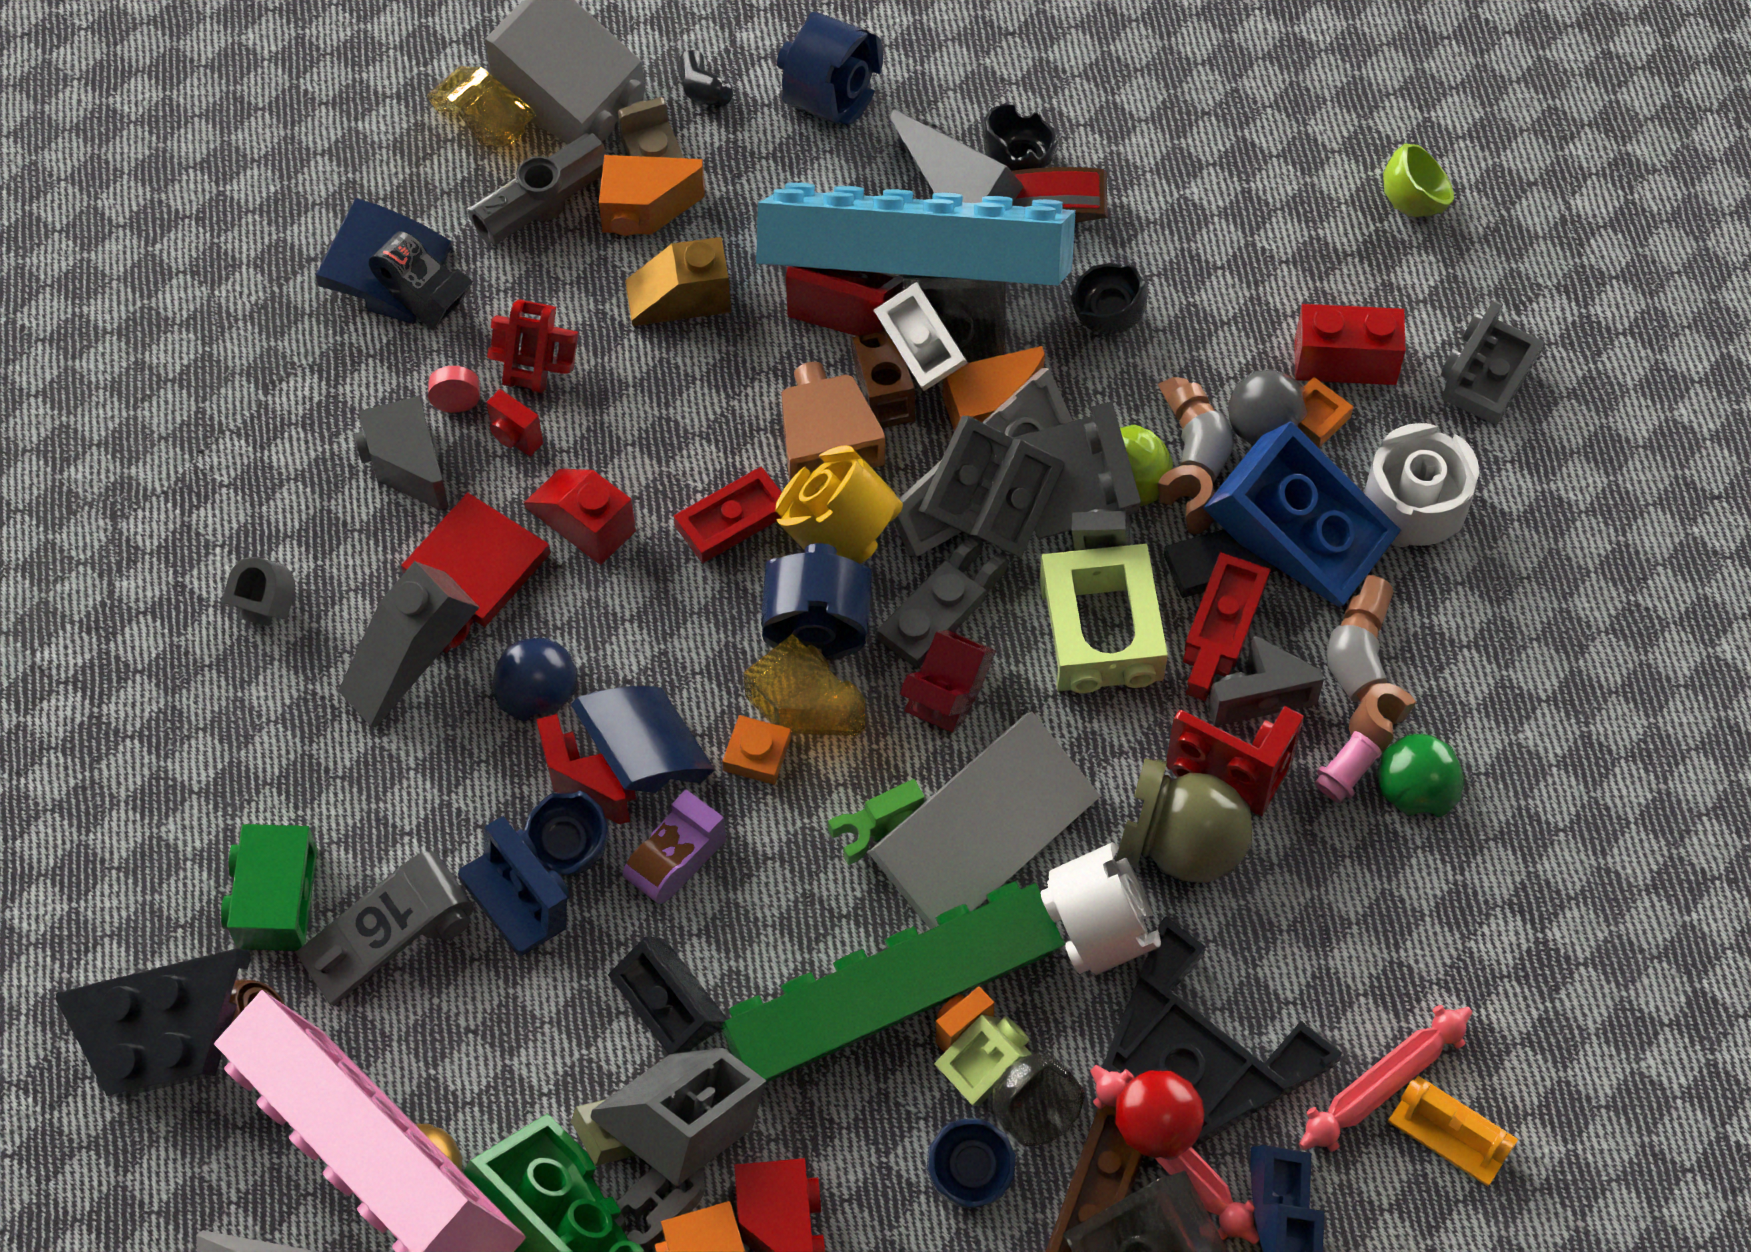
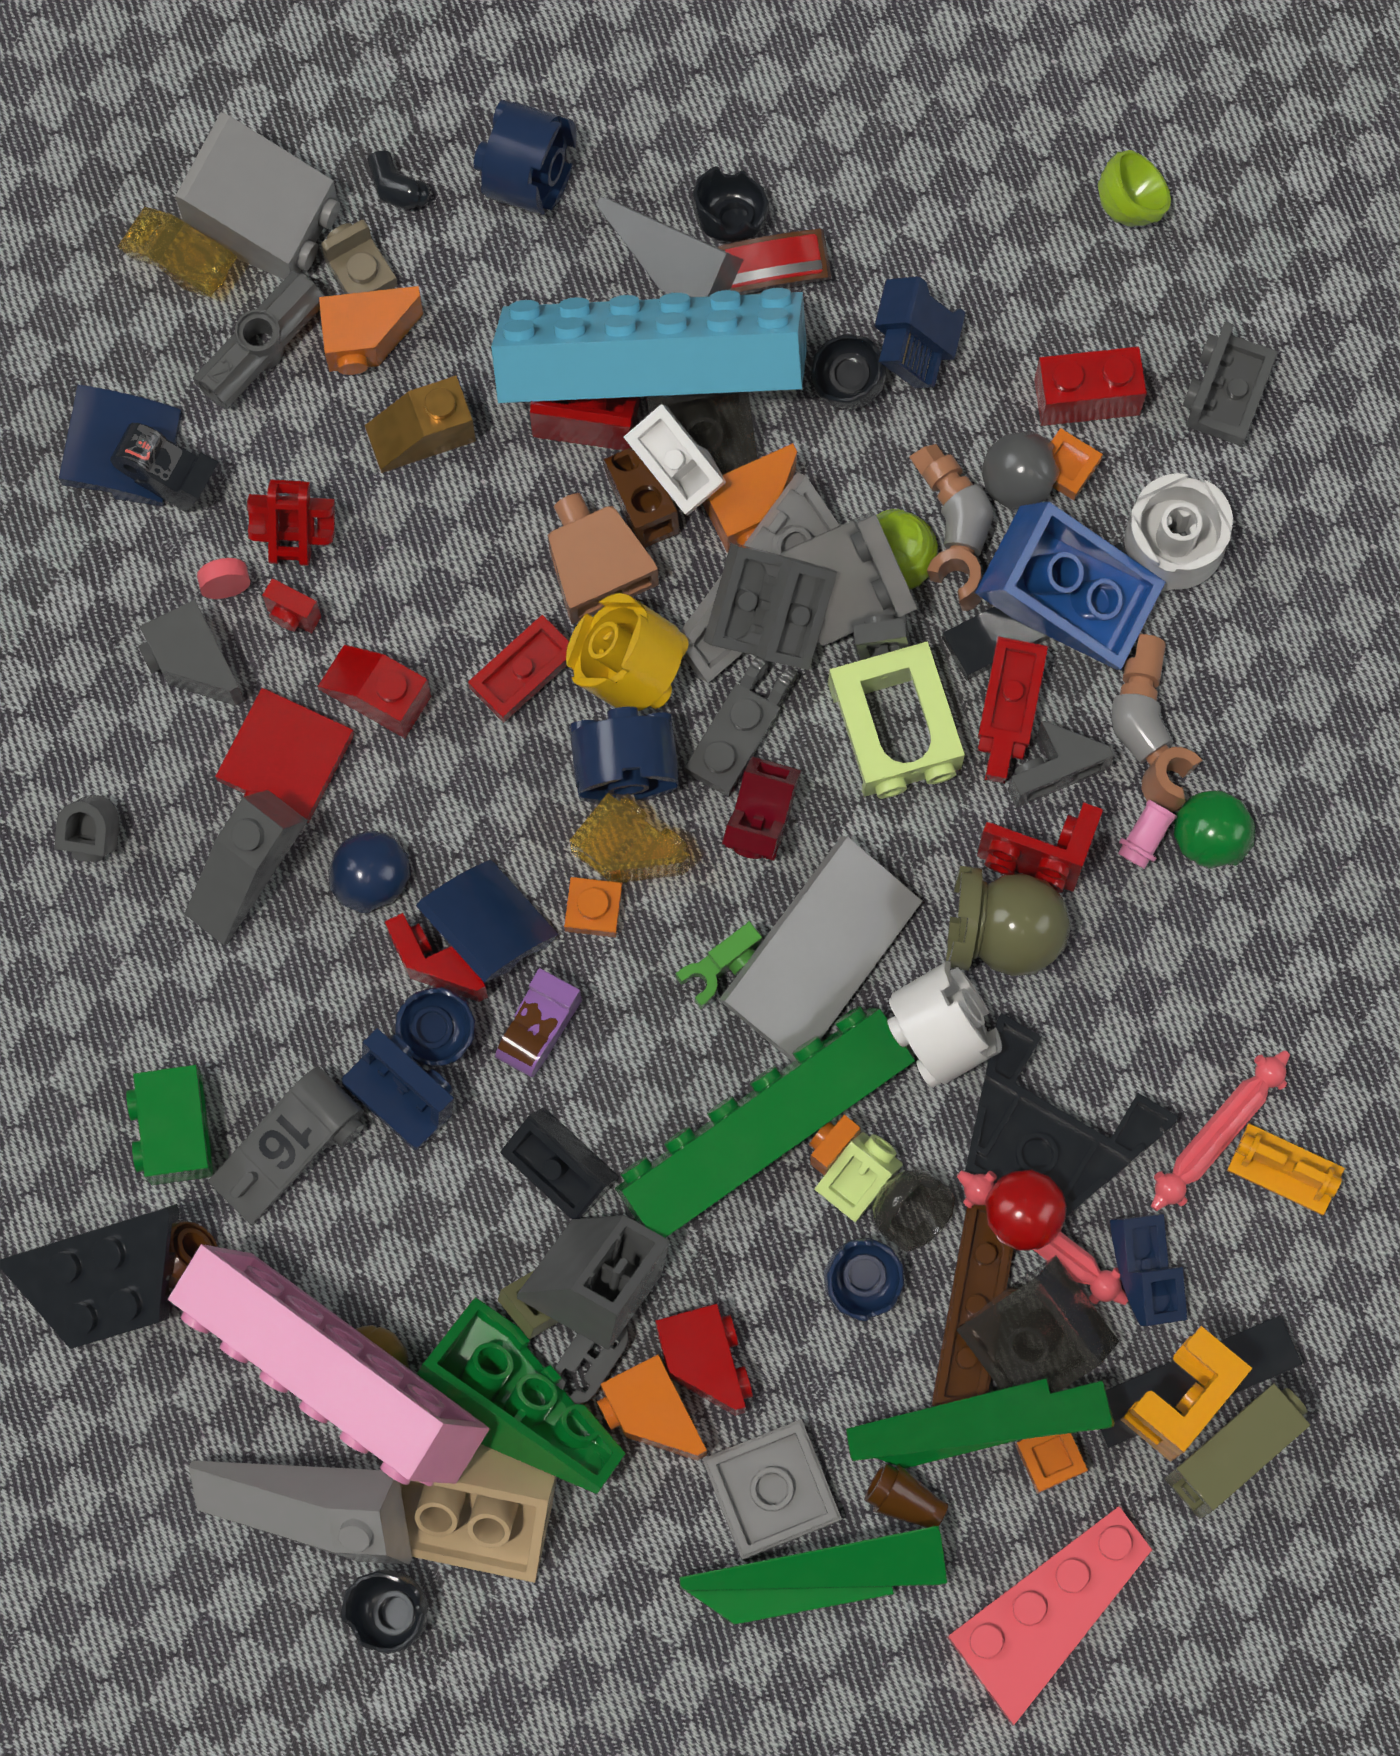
camera: 10 degrees left, 15 degrees up
(1183, 267) = (916, 331): none -> dark blue piece

